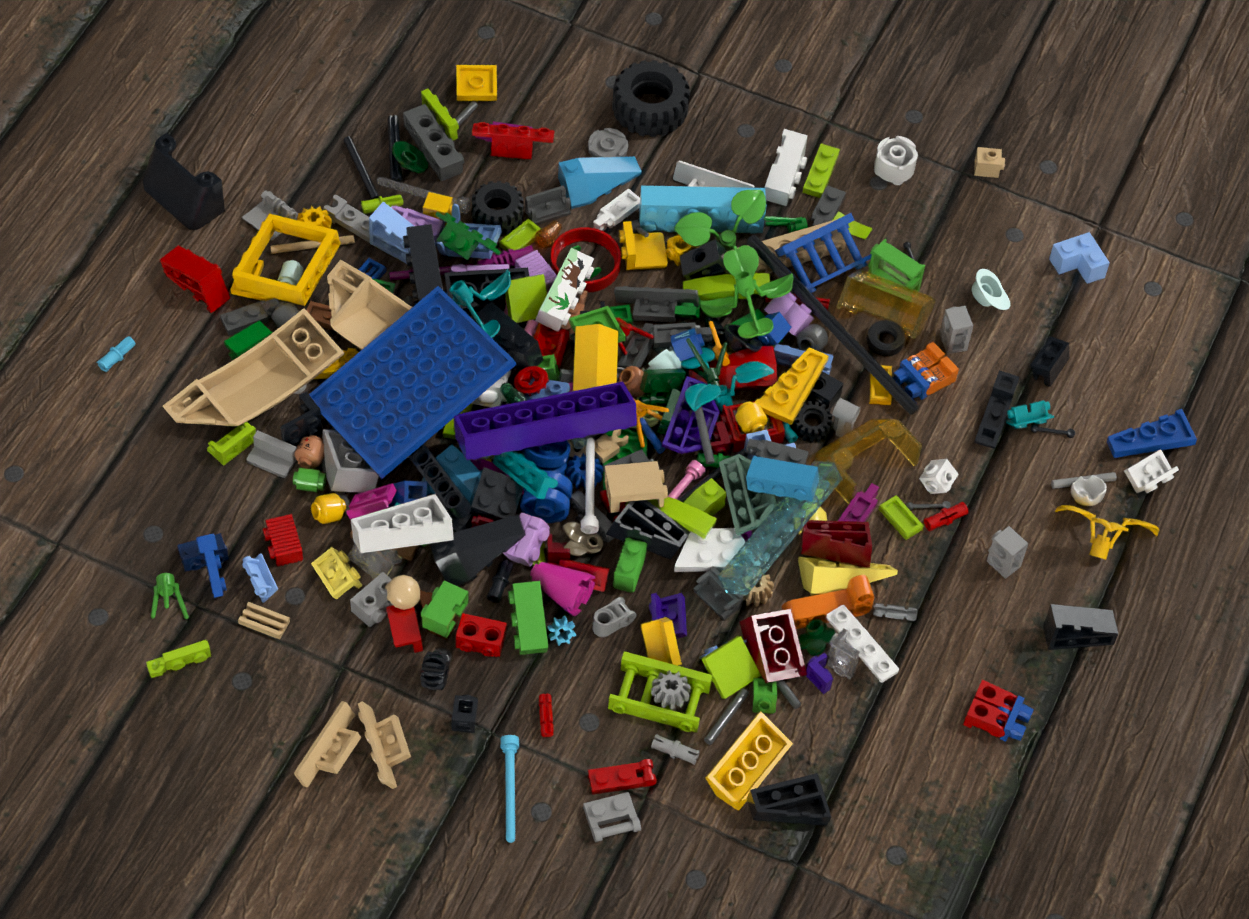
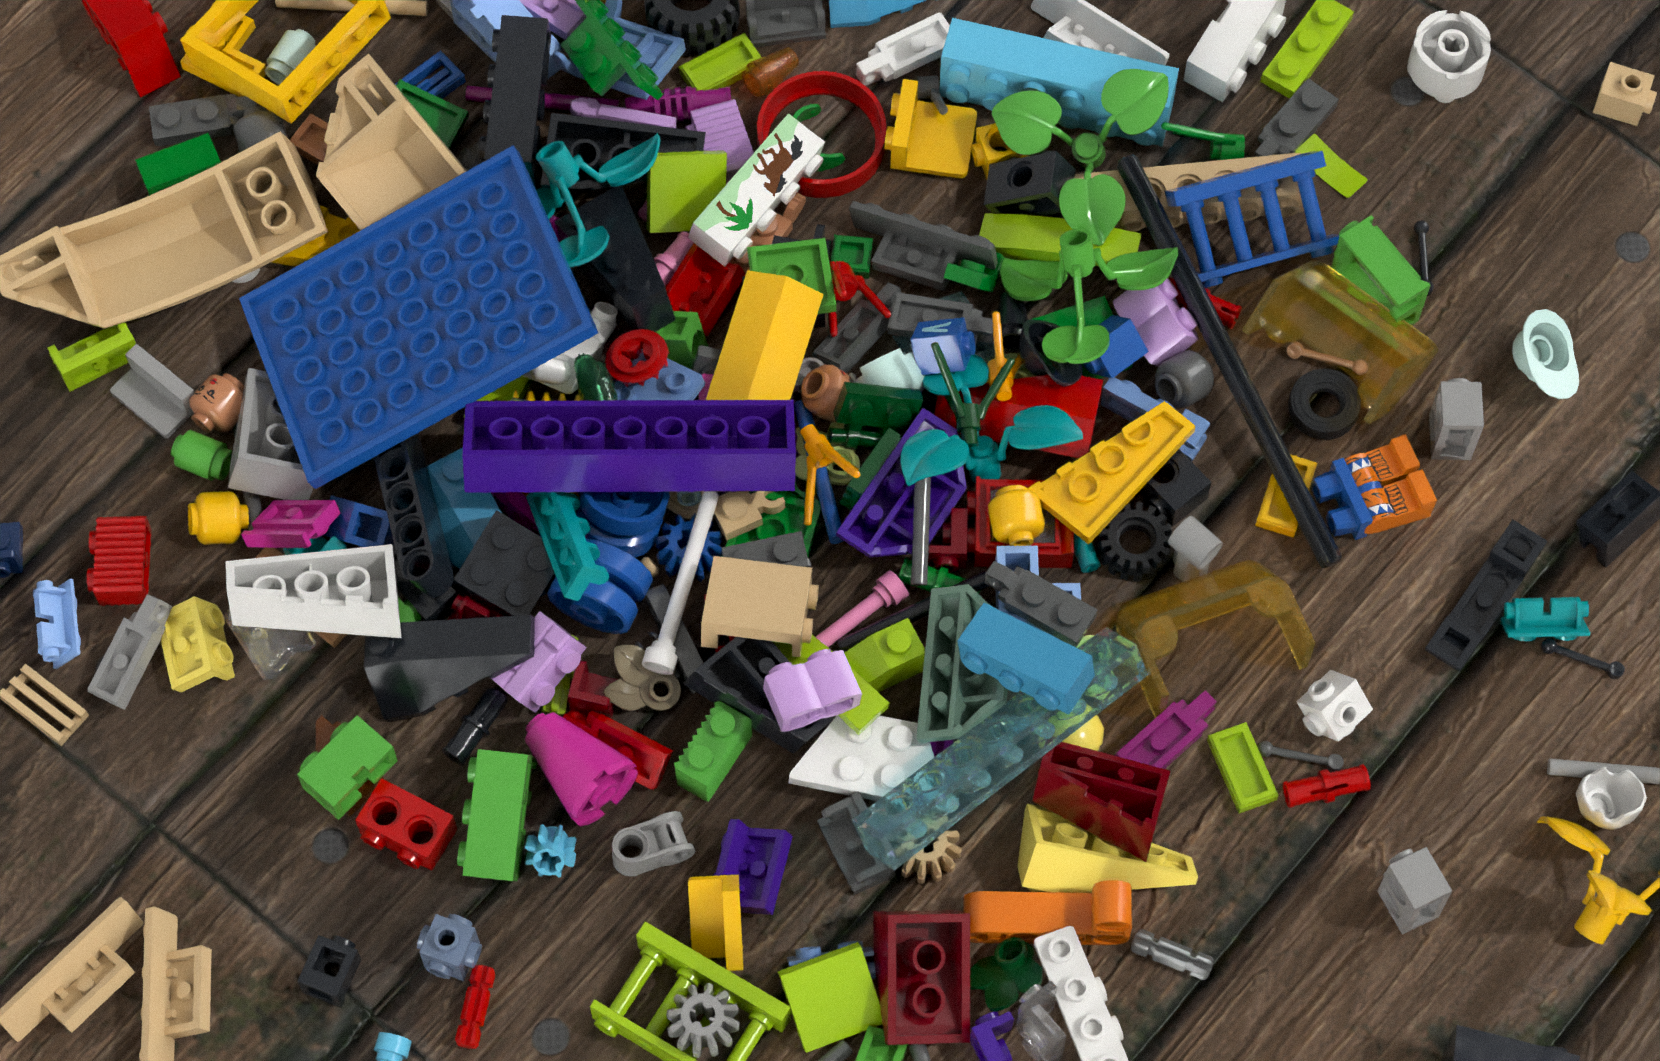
camera: 20 degrees right, 10 degrees up
(304, 583) = (130, 653): none -> light grey hinge
(305, 425) = (218, 354): black bracket -> none
(372, 601) = (246, 713): light grey brick -> none
(403, 592) = (285, 716): tan hair -> none
(404, 627) = (273, 777): red panel -> none
(435, 670) = (300, 877): black gear -> none
(524, 687) = (452, 959): none -> sand blue brick
(677, 518) = (811, 689): none -> lavender brick
(898, 316) = (1296, 350): none -> medium nougat hinge

